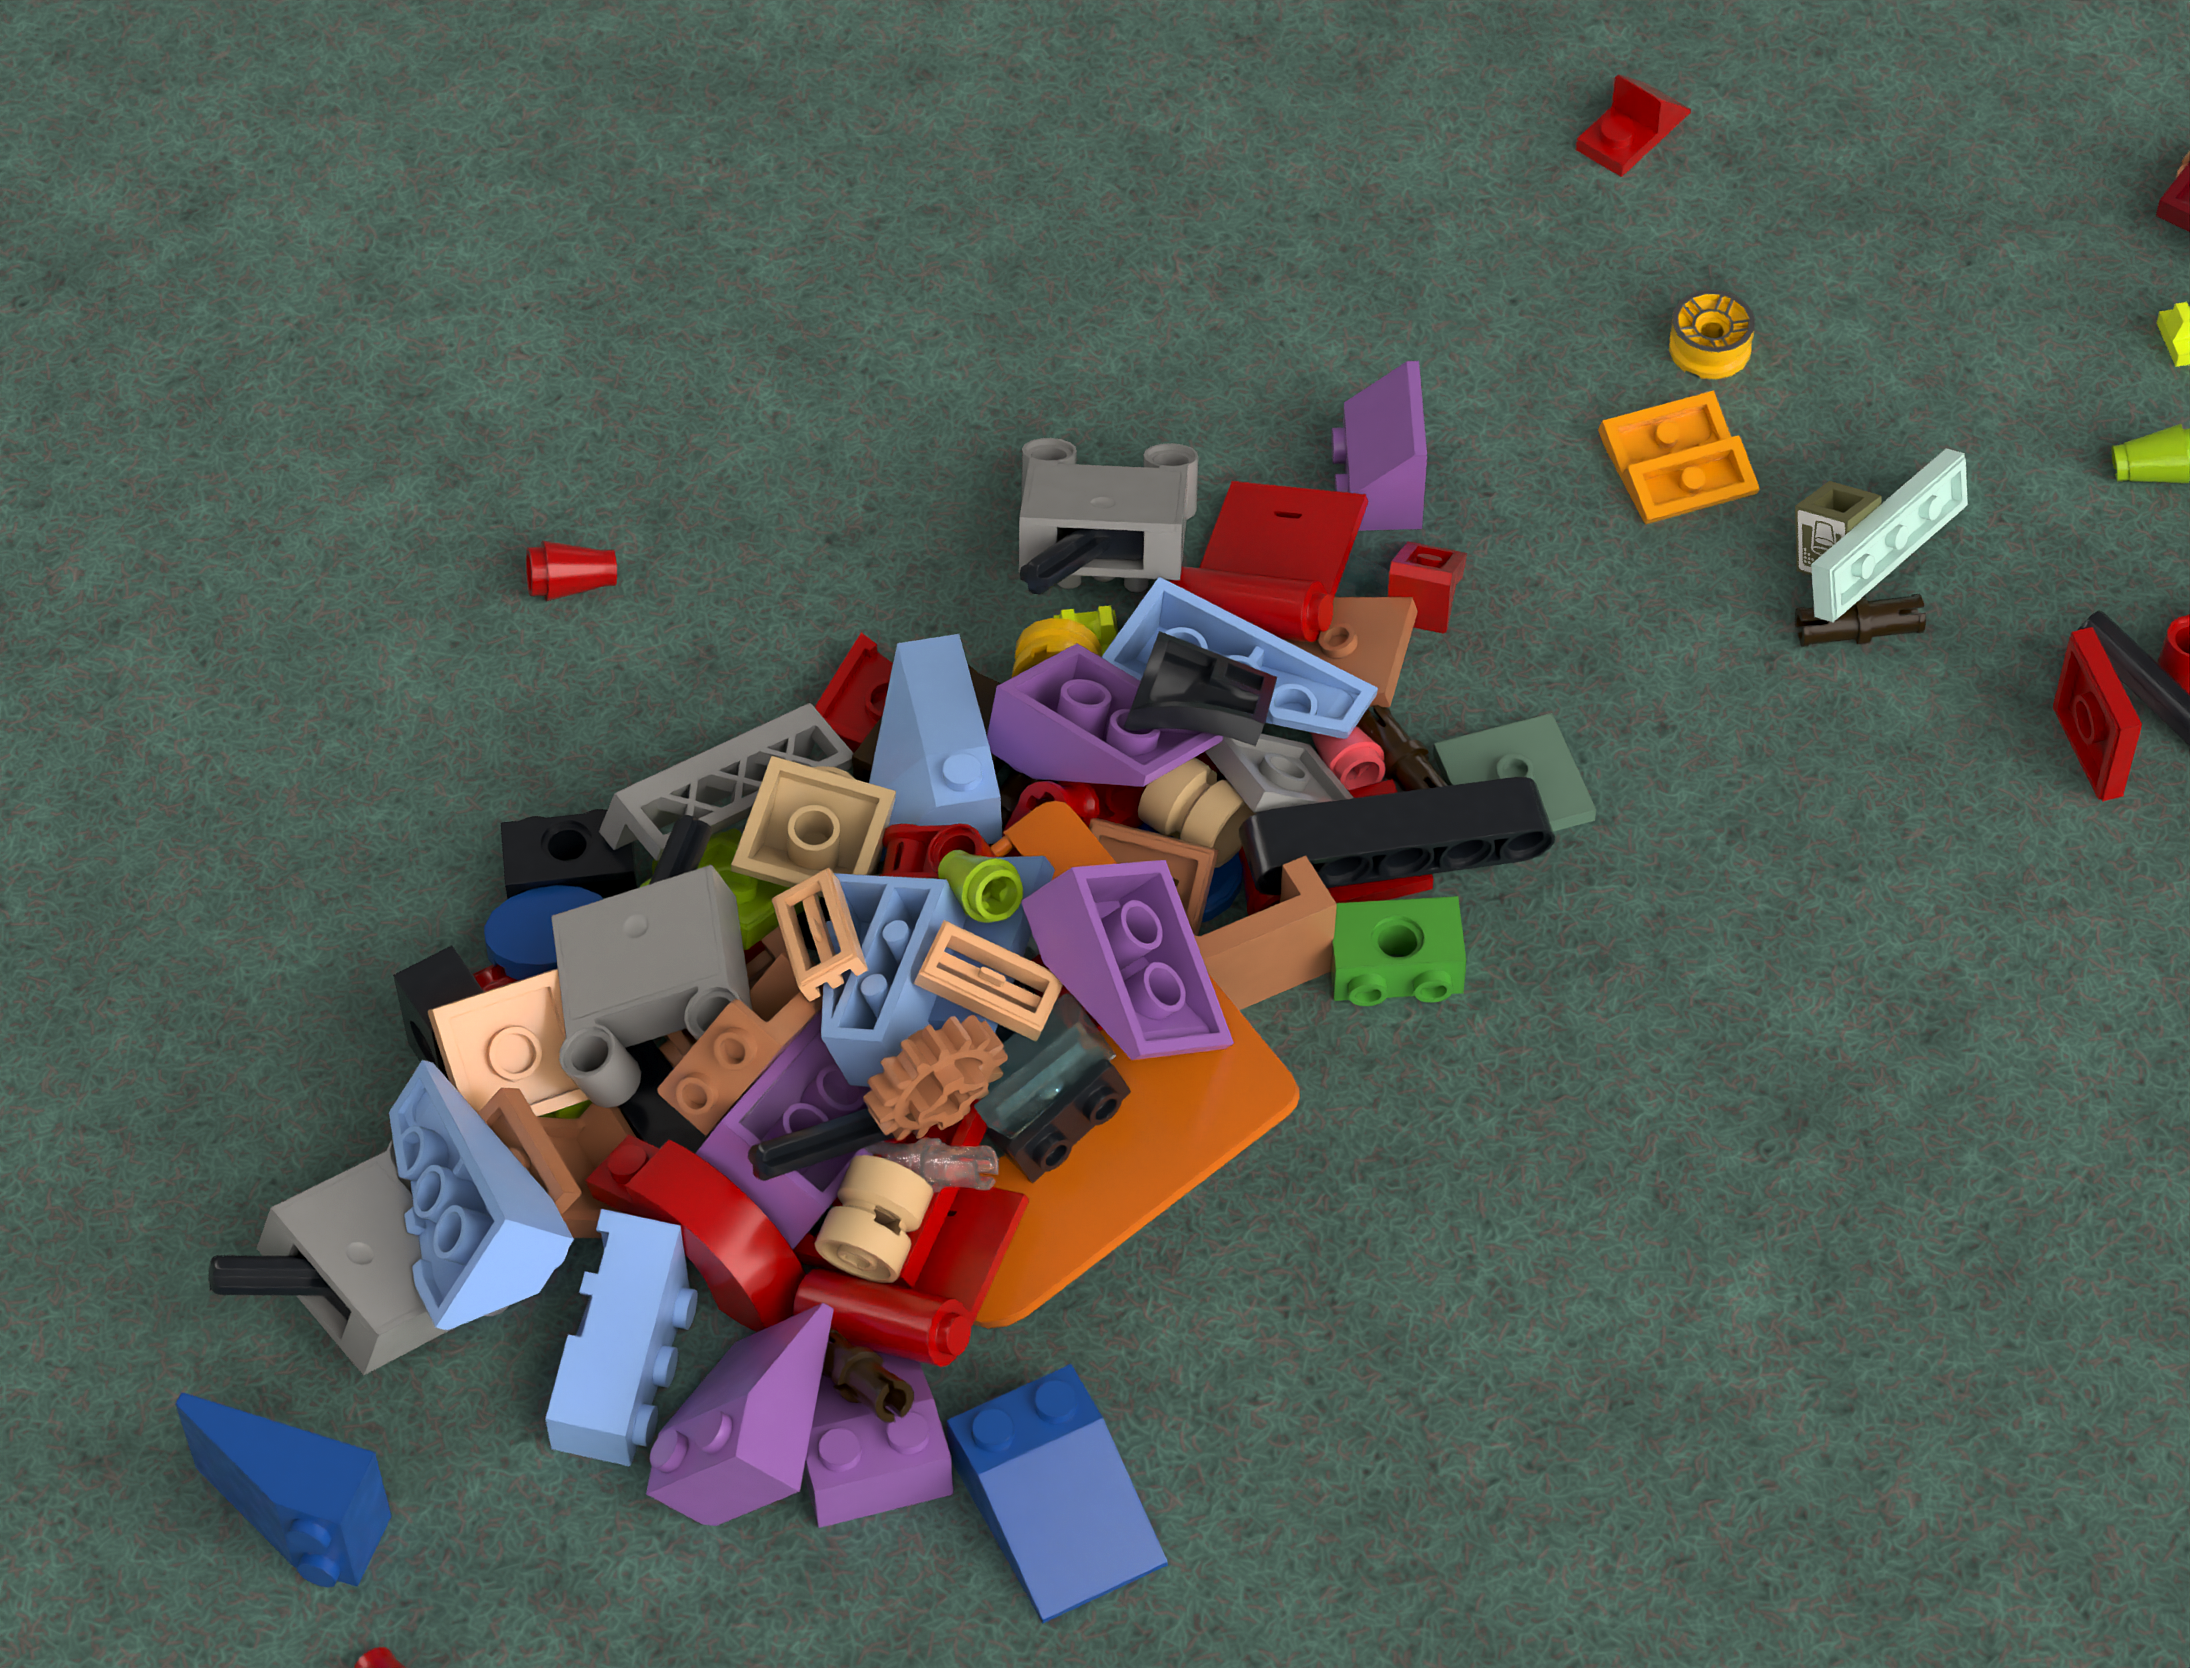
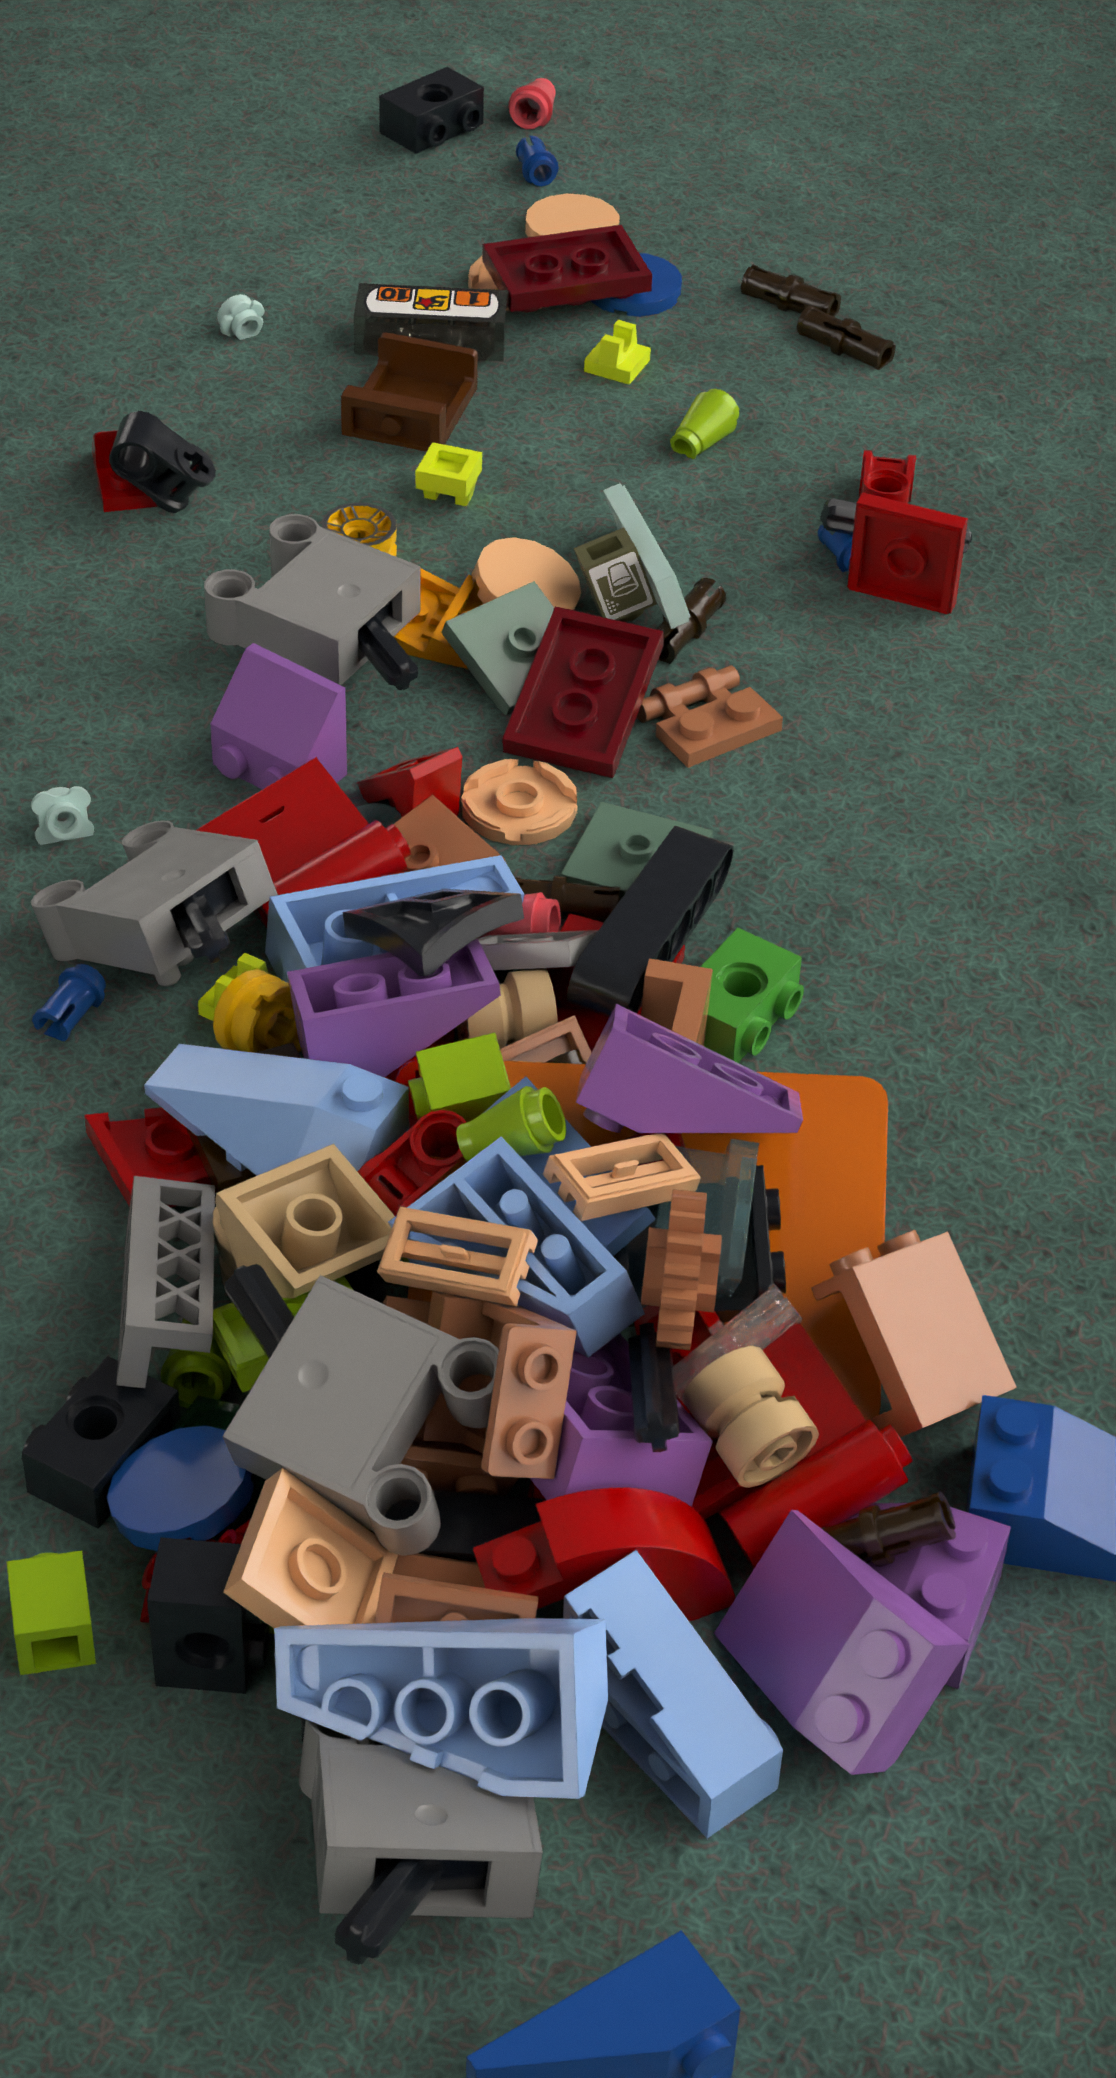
camera: 55 degrees left, 10 degrees down
(398, 934) = (50, 1612): none -> lime brick
(980, 539) = (77, 992): none -> blue pin
(1030, 822) = (460, 1077): none -> lime brick
(1085, 1280) = (920, 1329): none -> panel
(1167, 389) = (62, 800): none -> light aqua plate
(1501, 678) = (519, 816): none -> light nougat tile
(1558, 373) = (324, 606): none -> light grey piece
(1635, 132) = (158, 461): none -> black piece
(1664, 611) = (583, 692): none -> dark red plate
(1681, 532) = (501, 641): none -> sand green plate
(1747, 730) = (714, 727): none -> nougat plate
(1768, 474) = (517, 562): none -> light nougat tile
(1864, 330) = (449, 472): none -> neon yellow tile
(1932, 46) = (240, 317): none -> light aqua plate
(1956, 234) = (412, 393): none -> reddish brown panel
(2074, 174) = (434, 314): none -> clear smoke brick

